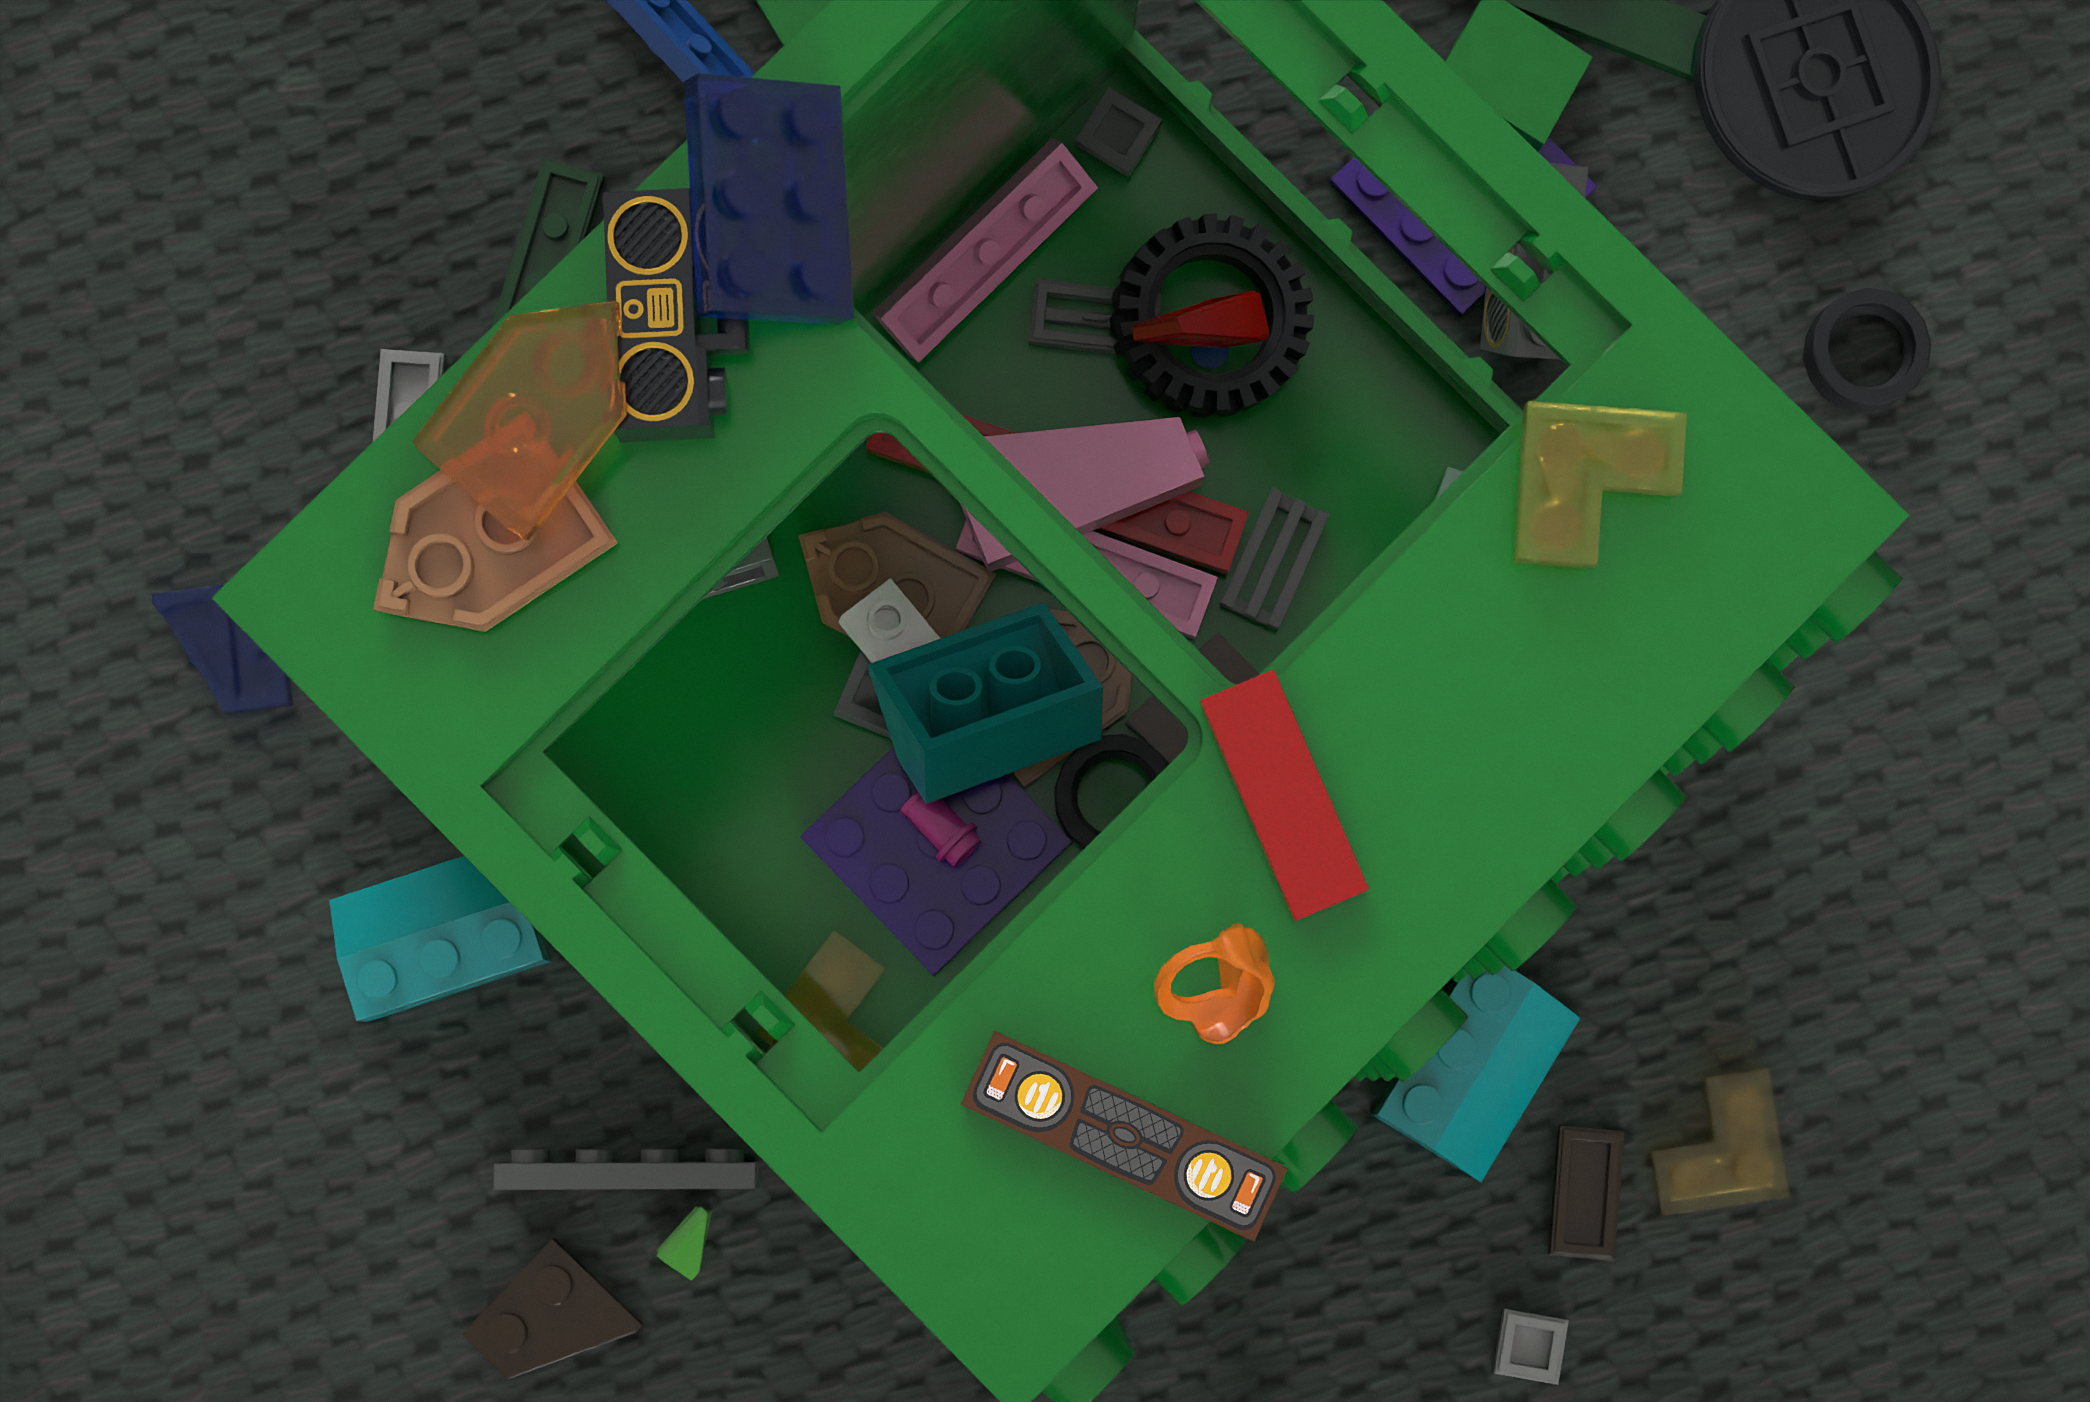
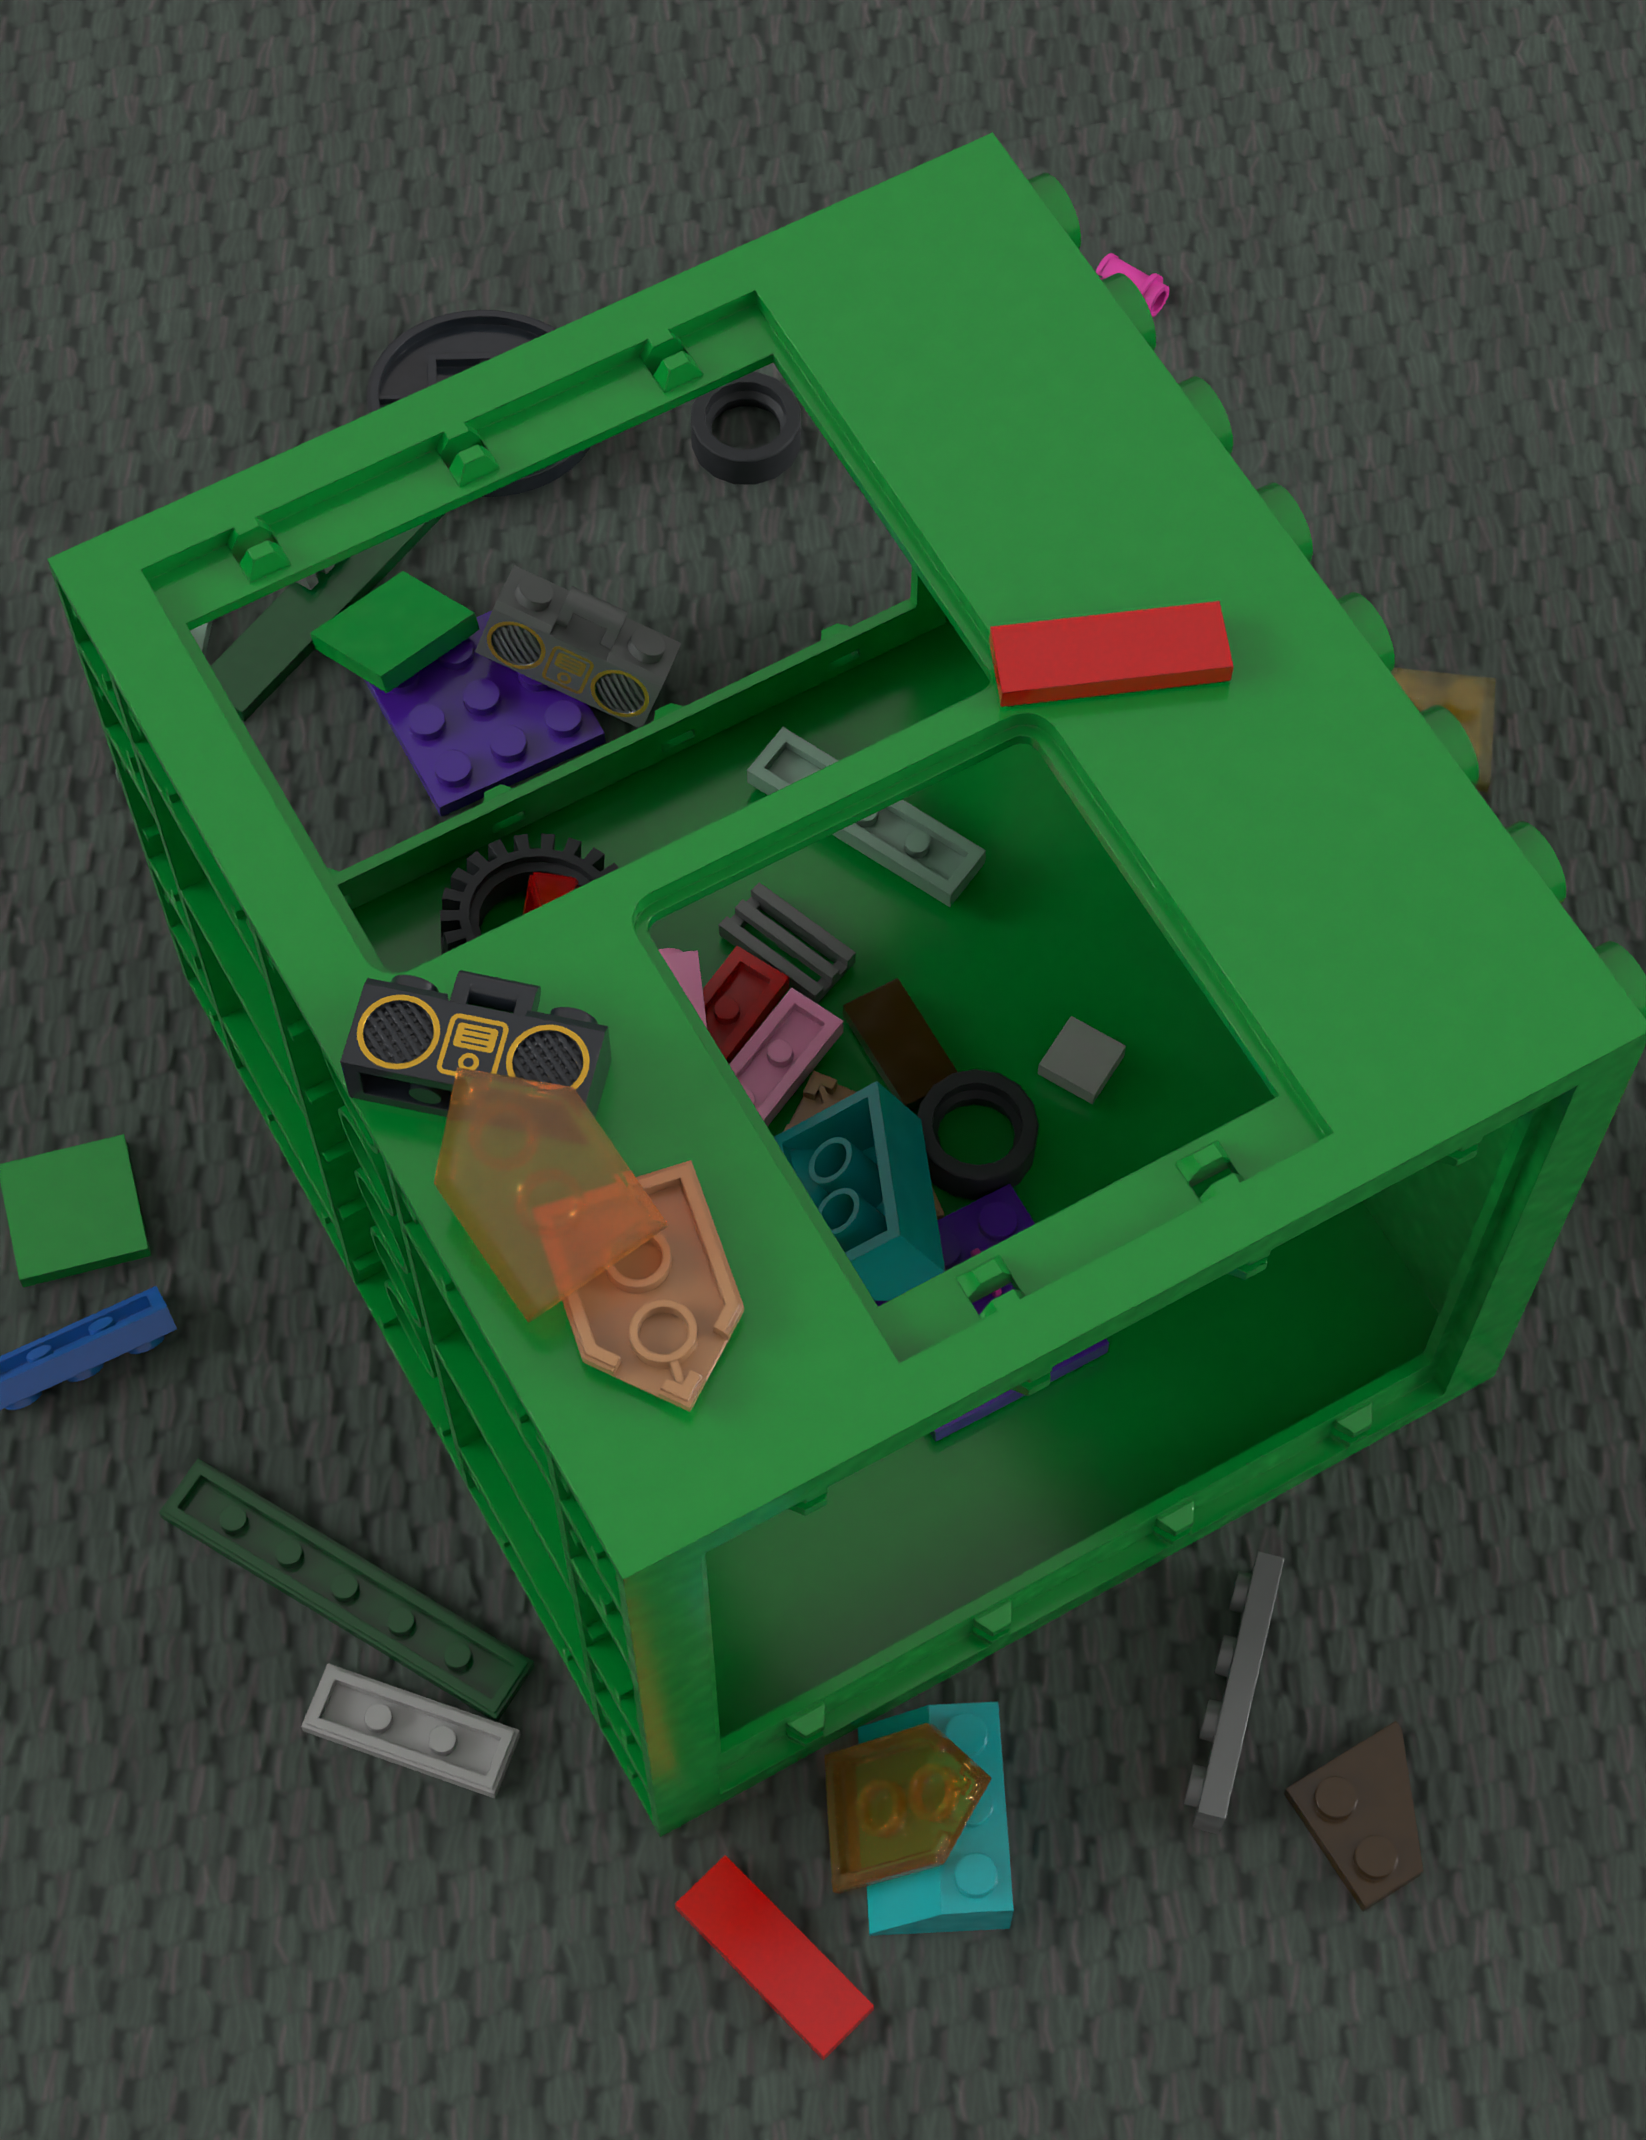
camera: 70 degrees left, 20 degrees down
(228, 659) = (564, 1960): clear blue wing -> none
(286, 822) = (774, 1957): none -> red tile
(423, 899) = (897, 1805): none -> clear orange tile
(686, 1244) = (1317, 1651): bright green slope -> none
(768, 200) = (397, 928): clear blue plate -> none
(831, 992) = (1126, 1469): clear yellow plate -> none
(1124, 1136) = (1400, 864): tile -> none
(1244, 985) = (1282, 722): orange piece -> none
(1530, 1346) = (1594, 915): light grey tile -> none
(1574, 456) = (871, 352): clear yellow plate -> none

